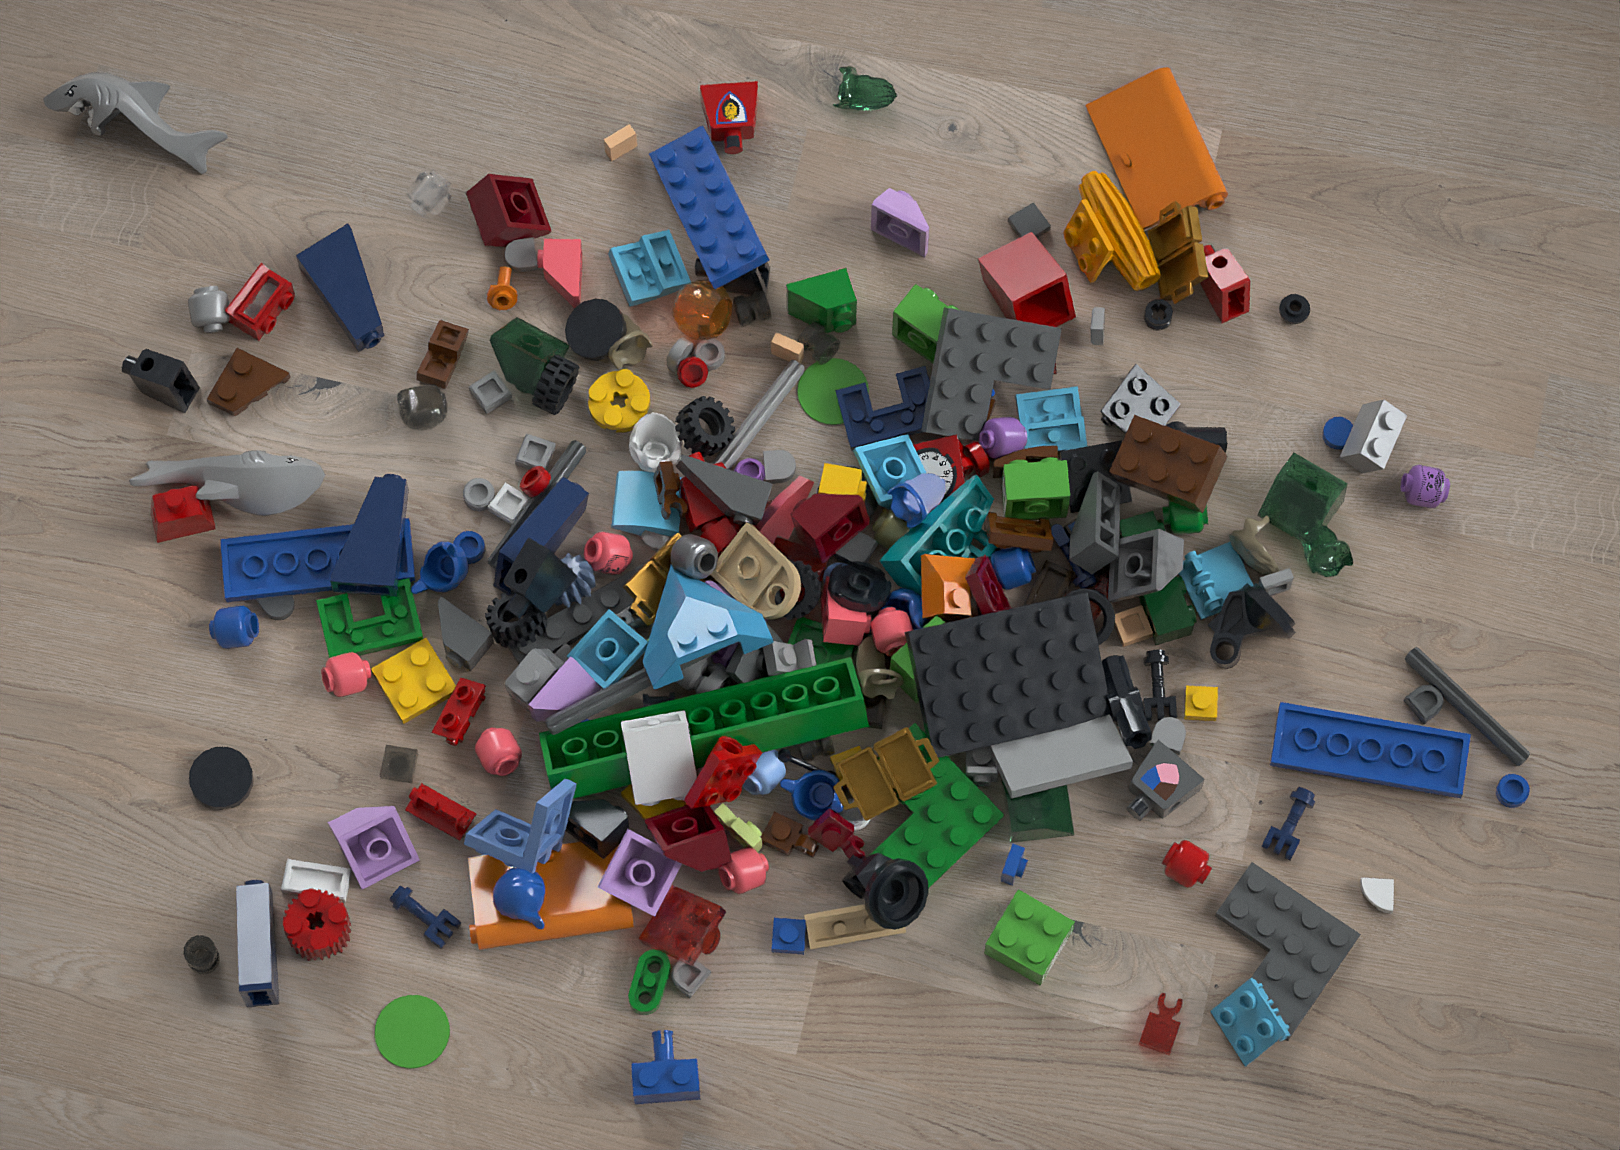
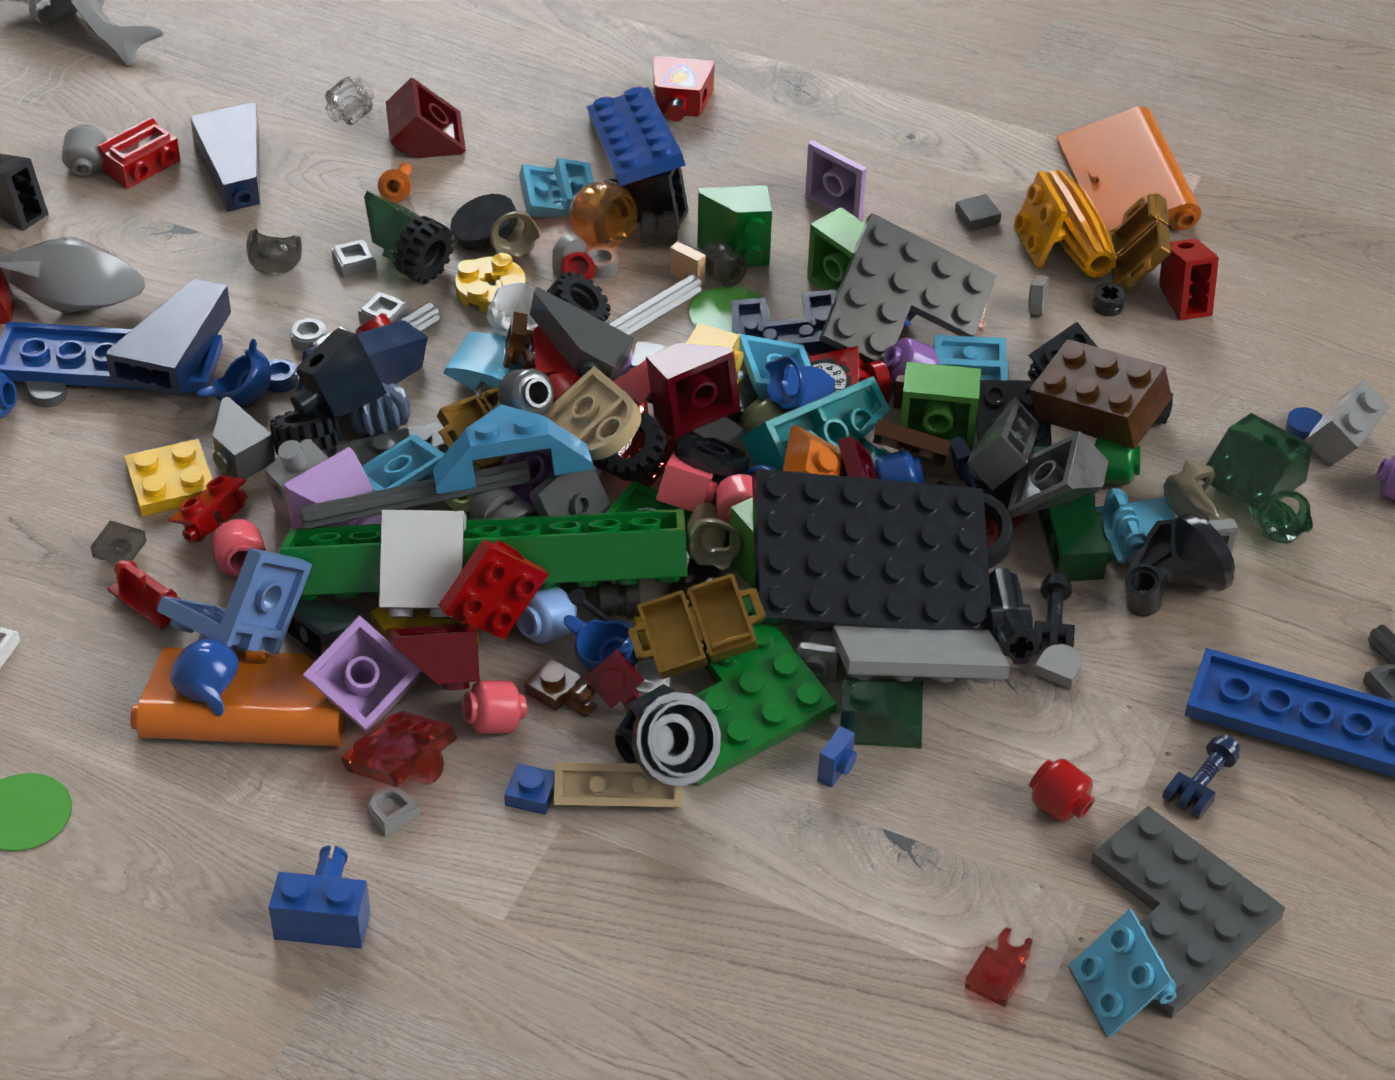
camera: 10 degrees right, 25 degrees down
(244, 382) = (95, 213): reddish brown wing -> none
(345, 674) = (92, 454): coral head -> none
(373, 843) = (56, 610): lavender slope -> none
(394, 629) = (111, 425): green plate -> none
(402, 898) = (67, 669): dark blue hinge -> none
(442, 354) = (316, 220): reddish brown slope -> none
(521, 255) = (427, 161): light grey tile -> none
(563, 267) = (467, 169): coral slope -> none
(608, 553) = (430, 391): coral head -> none
(620, 142) = (559, 92): light nougat tile -> none
(649, 983) = (334, 806): green plate -> none
(744, 833) = (501, 663): yellowish green plate -> none
(788, 657) = (602, 499): light grey bracket -> none
(863, 91) = (821, 94): clear green piece -> none
(1028, 283) = (976, 238): slope -> none
(1029, 937) = (840, 834): bright green brick -> none
(1132, 626) = (1032, 556): light nougat tile -> none
(1162, 783) = (1045, 705): dark grey torso -> none
(1200, 703) = (1105, 641): yellow plate -> none
(1291, 316) = (1264, 316): black plate -> none
(1379, 893) = (1314, 868): white tile -> none

